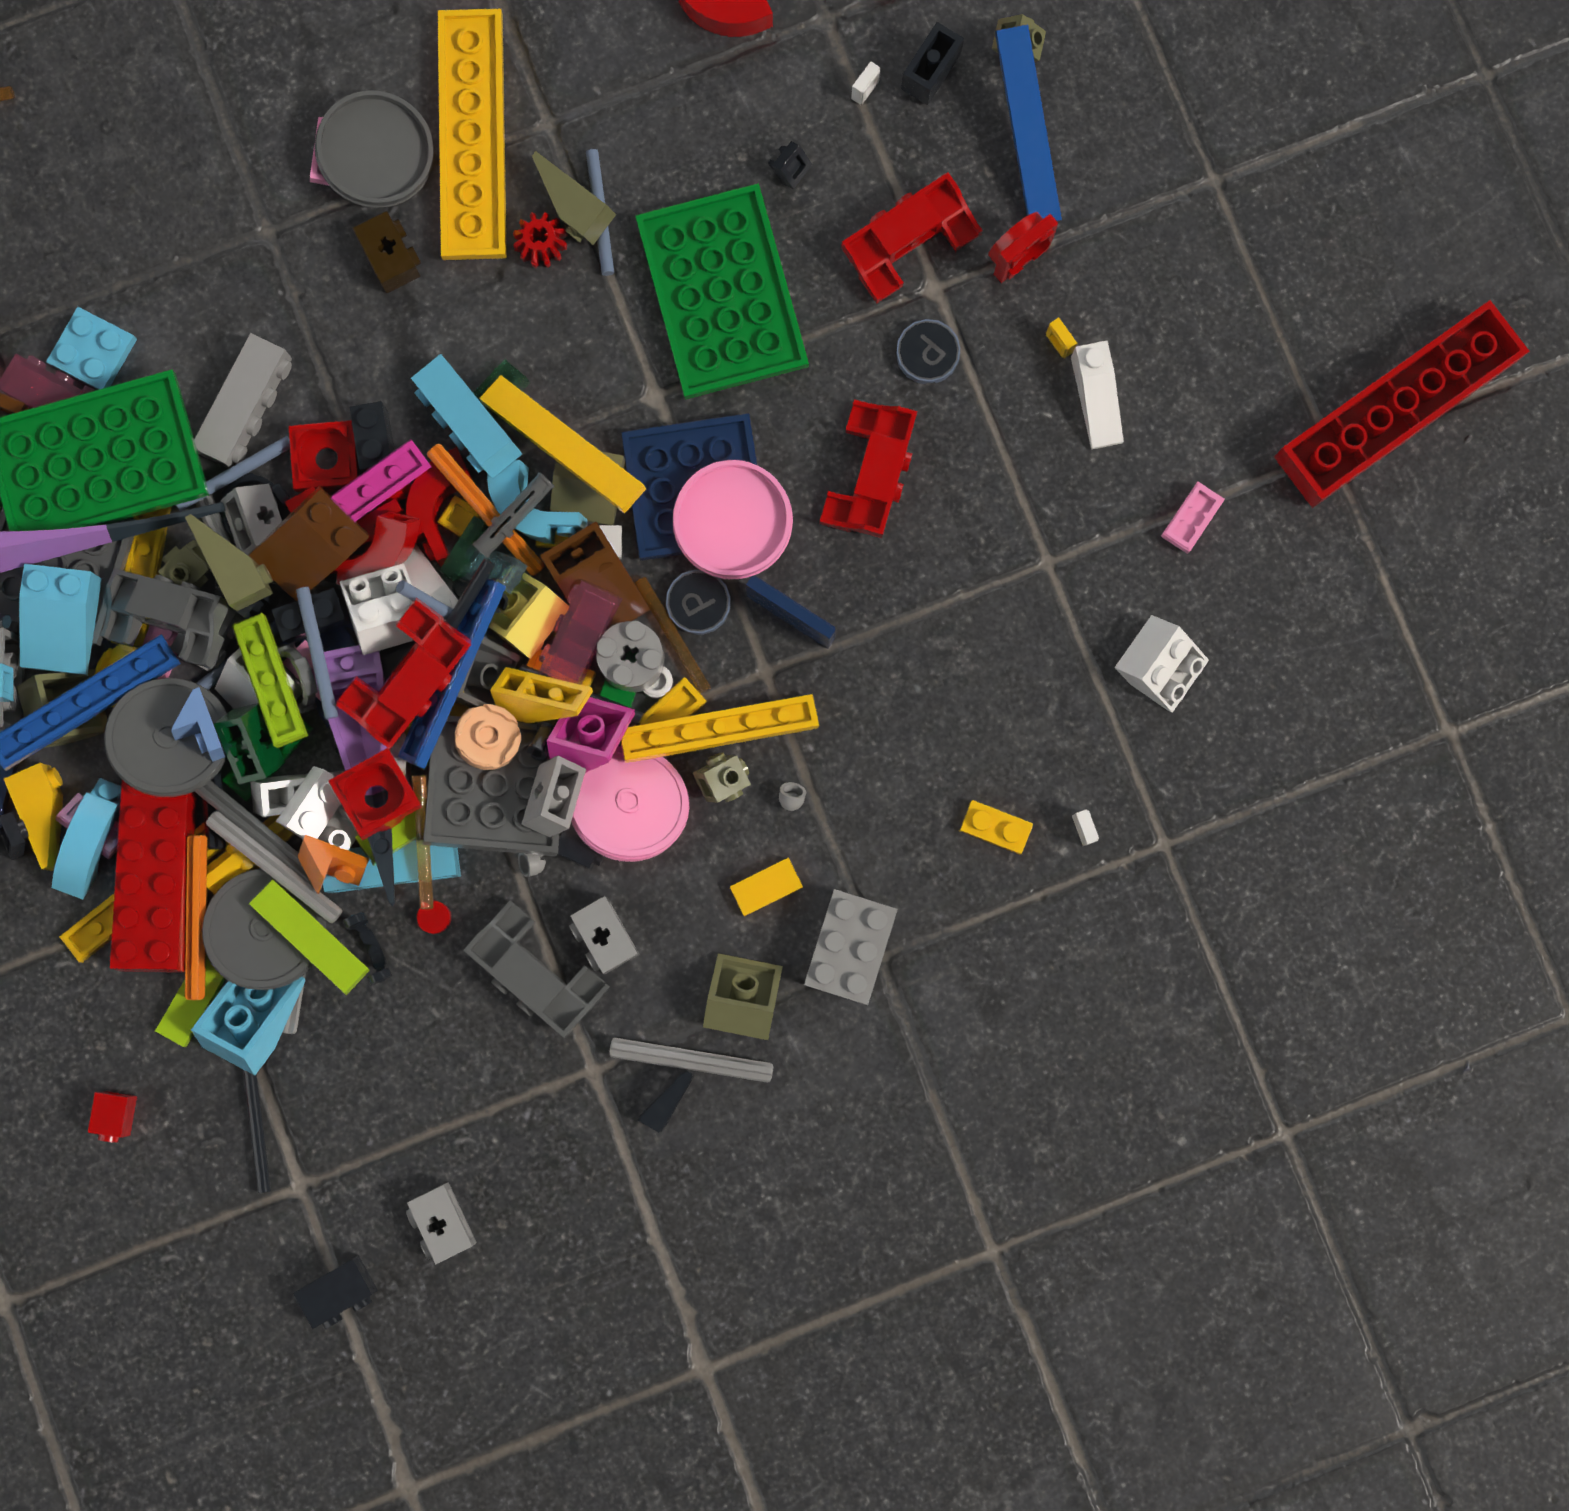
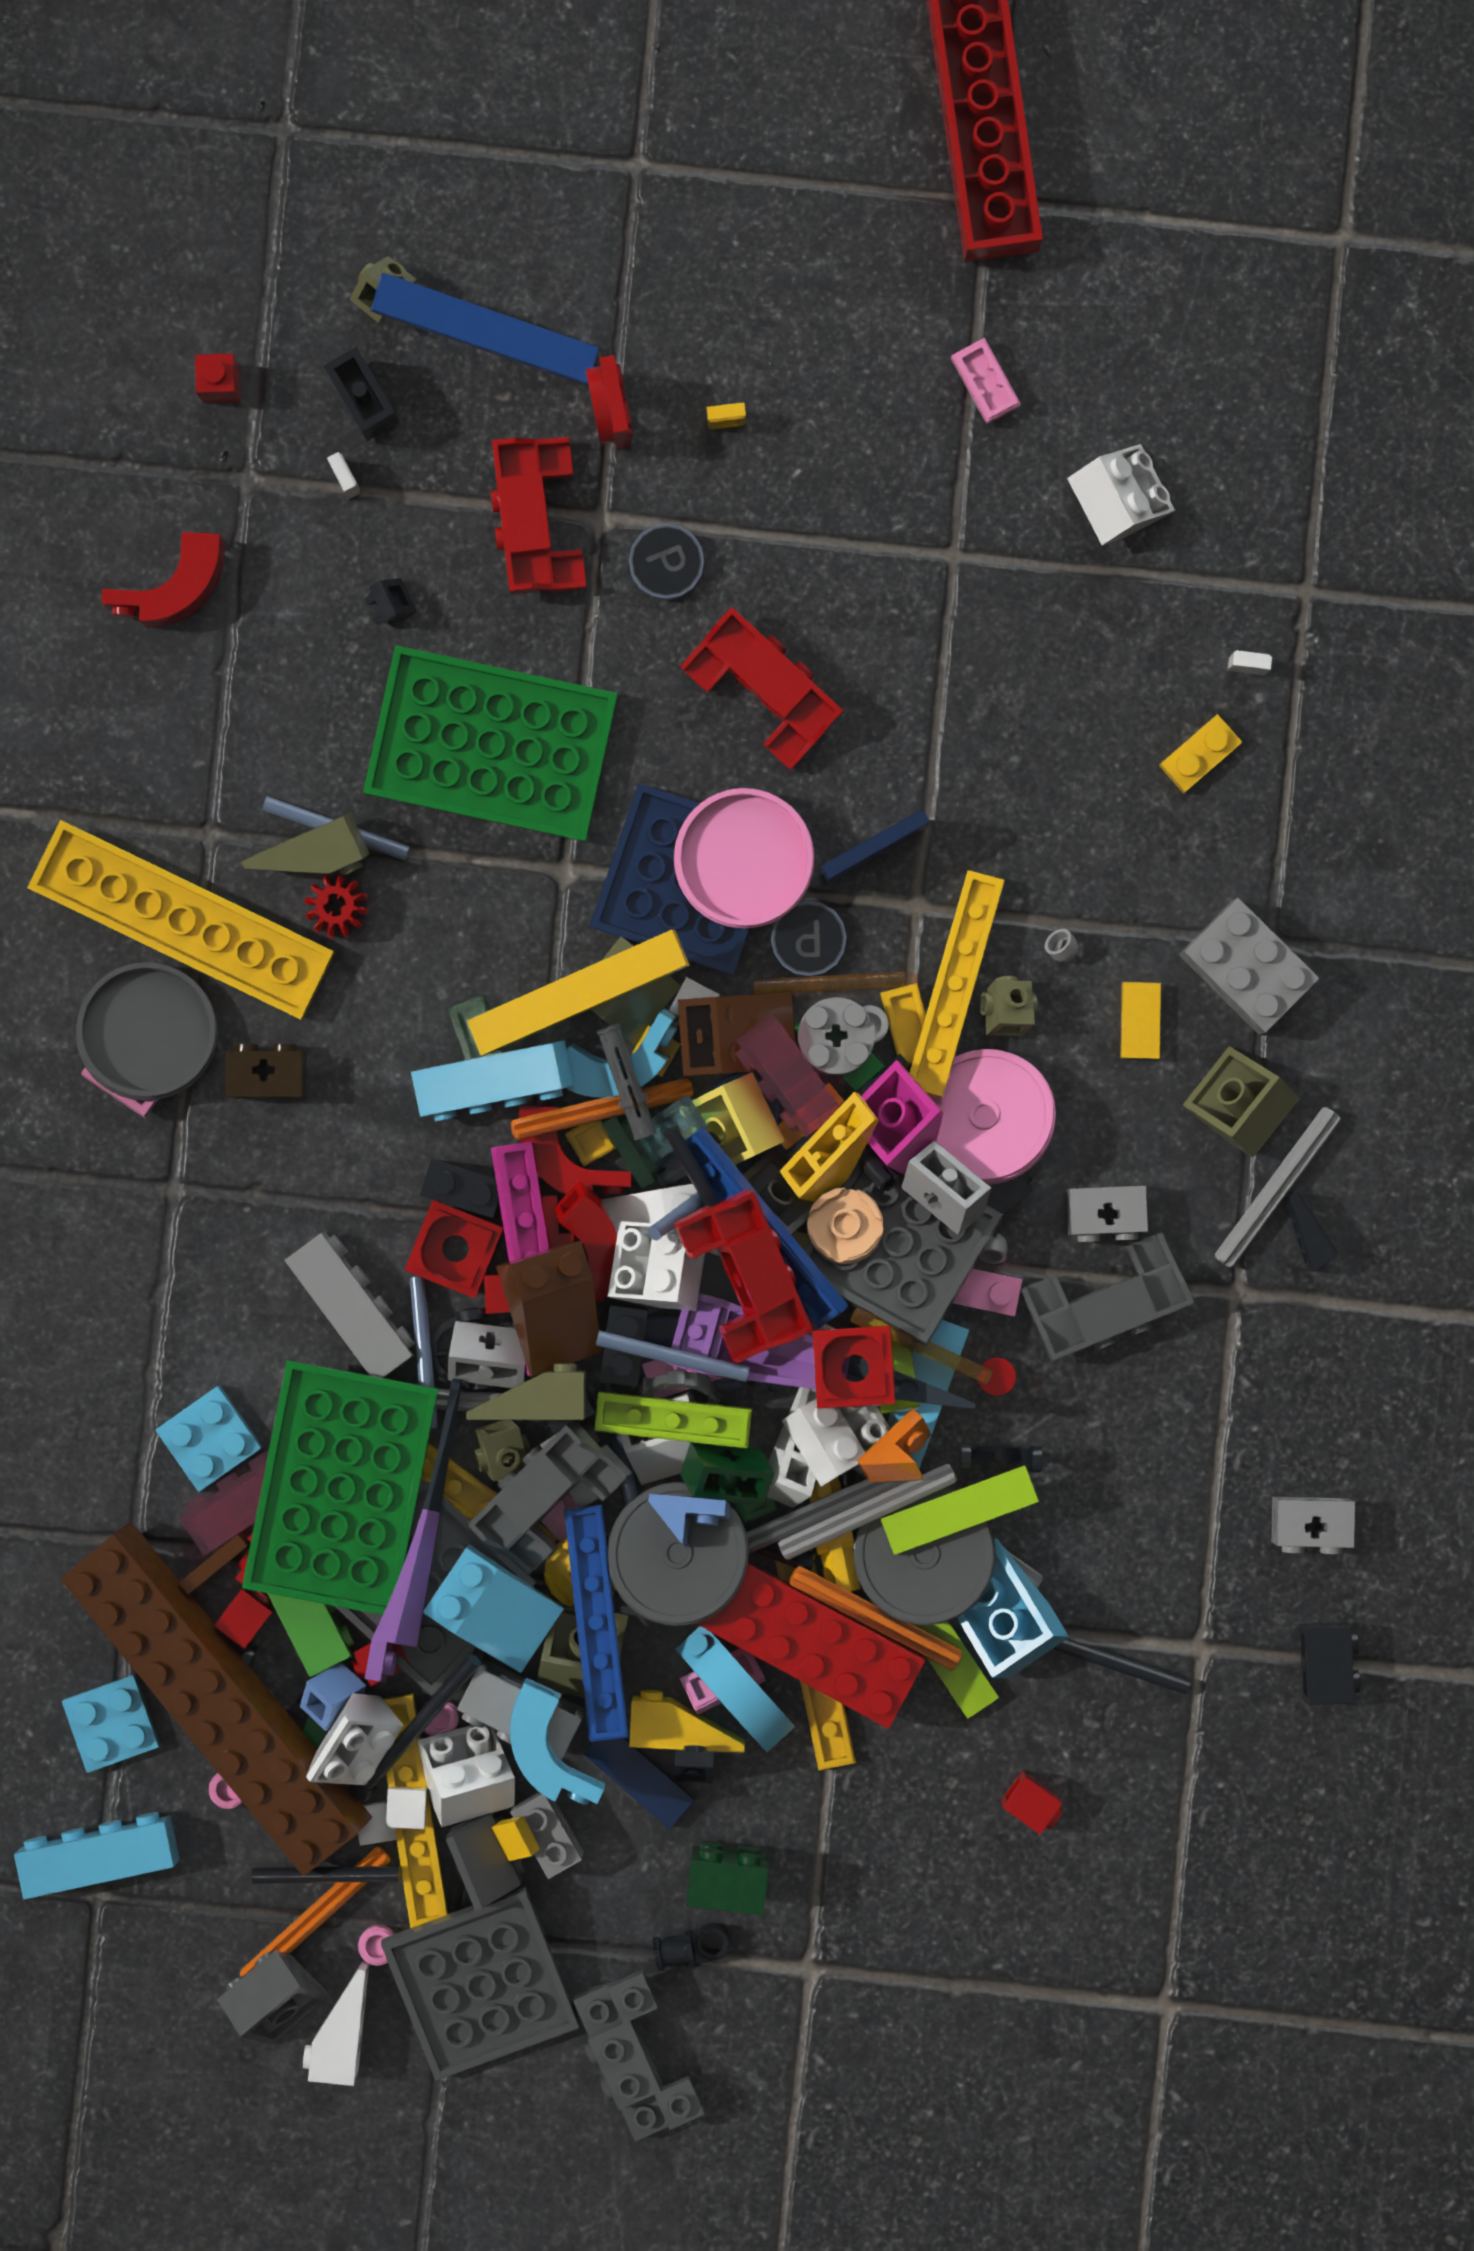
camera: 60 degrees left, 5 degrees up
(496, 877) = (990, 1292): none -> bright pink plate
(1098, 393) = (805, 409): white slope -> none

